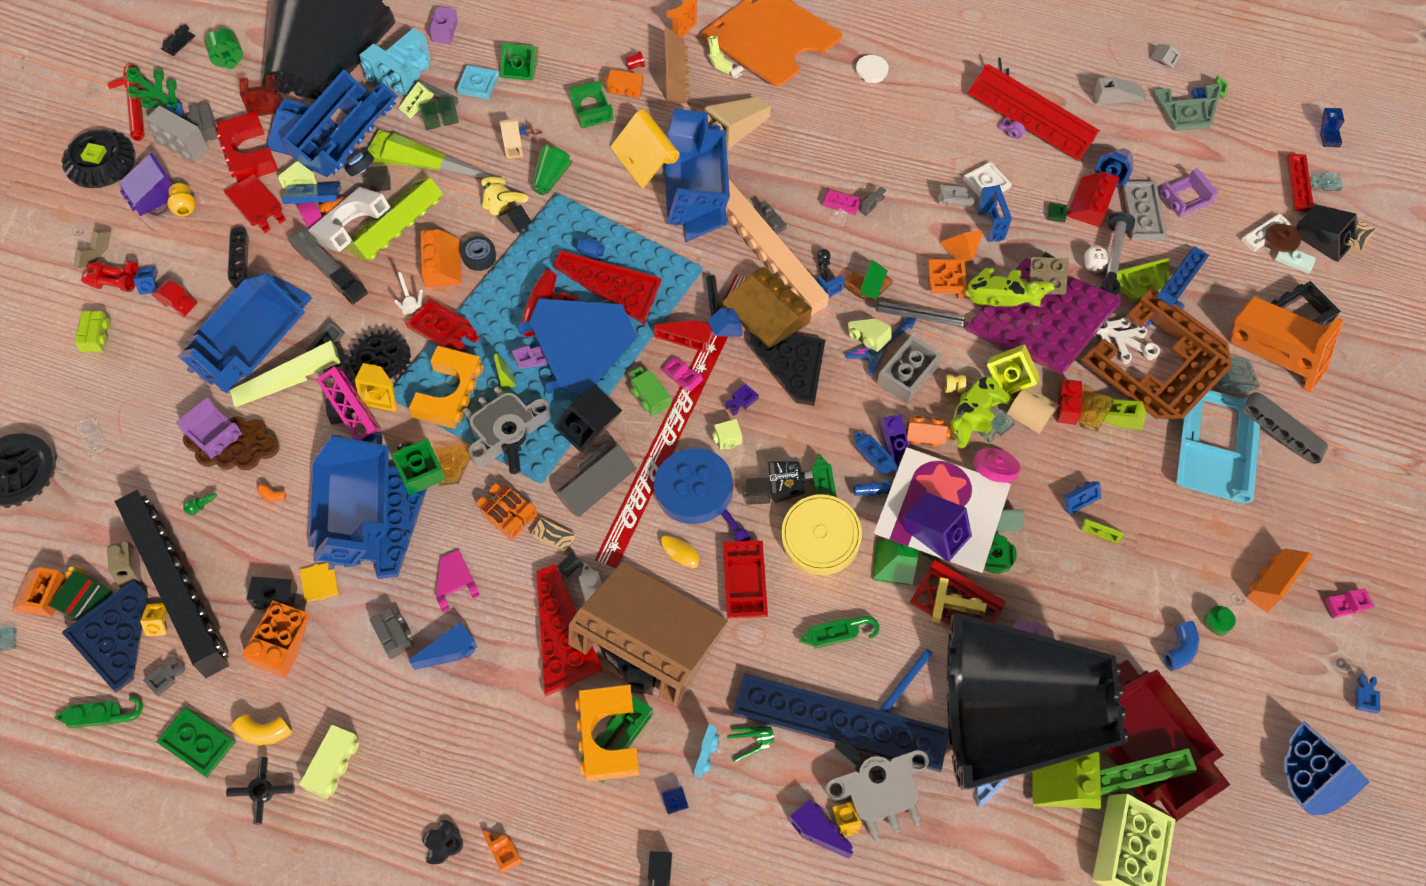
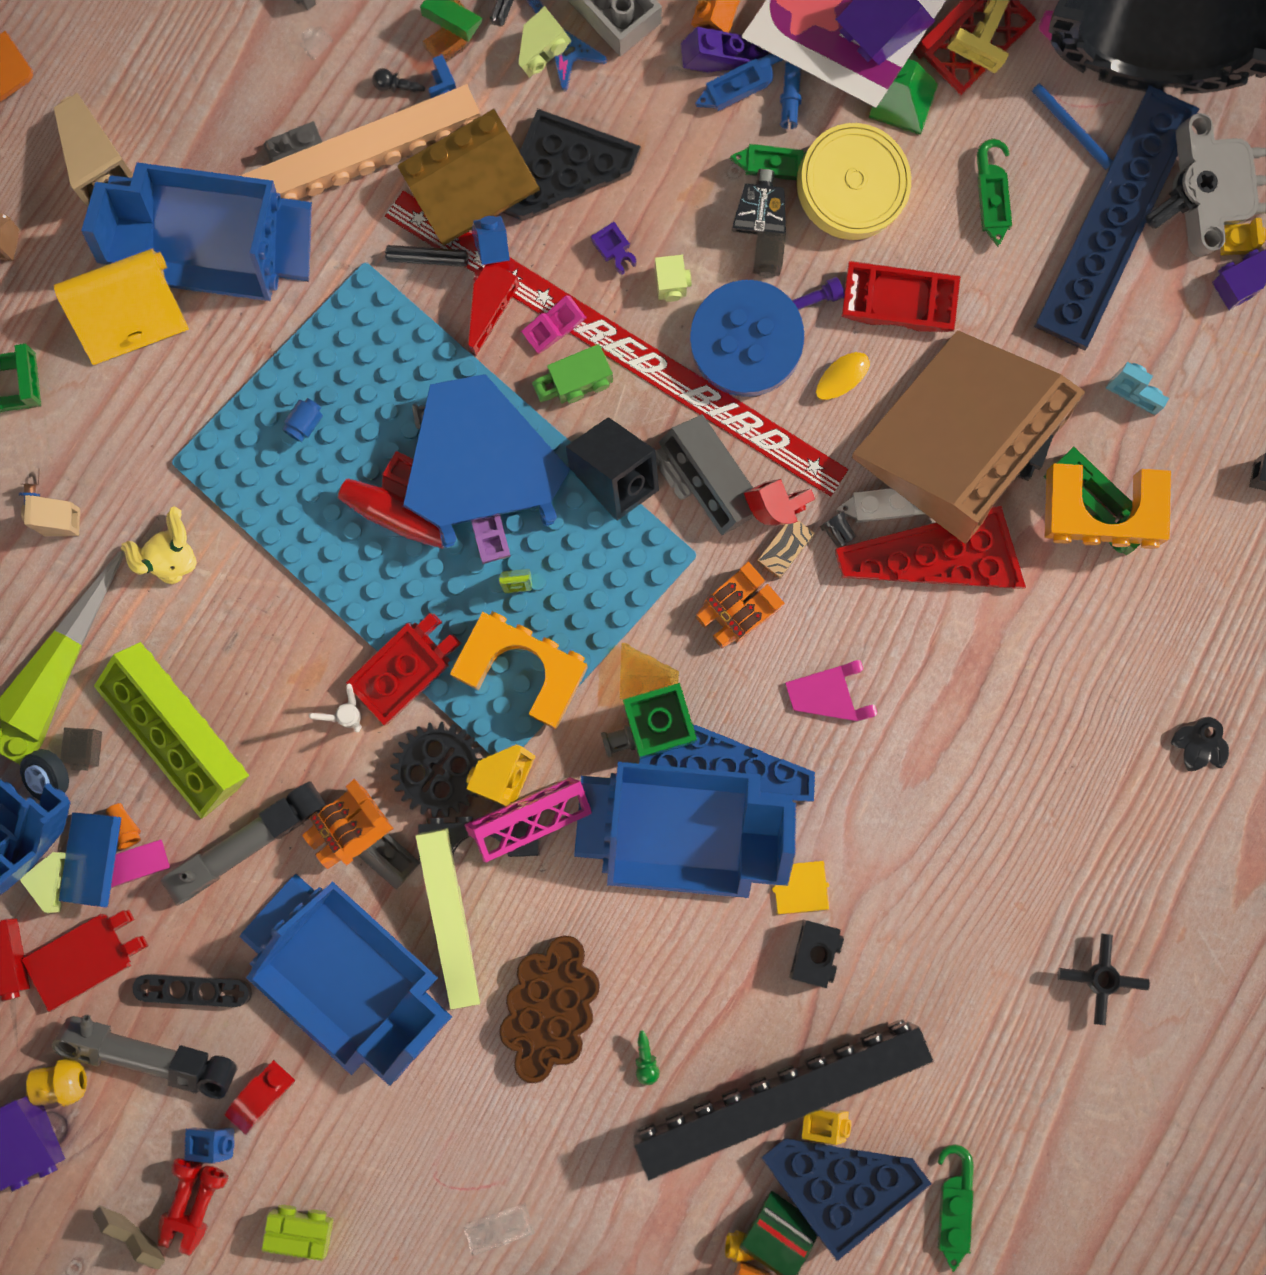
camera: 80 degrees left, 20 degrees up
(124, 558) = (733, 1171): dark tan torso -> none
(162, 679) = (920, 1115): dark grey plate -> none
(192, 255) = (185, 1069): none -> dark grey piece
(196, 742) = (1017, 1069): green tile -> none
(208, 428) = (529, 1038): medium lavender panel -> none
(260, 733) = (1024, 975): yellow cylinder -> none
(270, 495) = (649, 954): orange arm -> none
(277, 639) = (891, 946): orange slope -> none
(330, 230) = (130, 784): white arch -> none
(330, 762) = (1078, 882): yellowish green brick -> none
(339, 312) = (347, 826): none -> orange hips
(390, 632) = (903, 787): dark grey brick -> none
(440, 258) = (267, 660): orange slope -> none
(447, 648) = (938, 709): blue slope -> none
(478, 253) = (258, 587): black wheel -> none
(495, 422) = (592, 599): piece -> none
(503, 851) = (1222, 668): orange slope -> none
(515, 219) = (216, 532): black slope -> none
(550, 168) = (128, 463): green cone -> none
(574, 517) = (772, 504): none -> brick
(612, 283) = (381, 391): red wing -> none
(674, 800) = (1188, 442): clear blue tile -> none
(762, 735) = (1123, 318): green plant -> none
(843, 201) = (287, 30): dark pink plate -> none

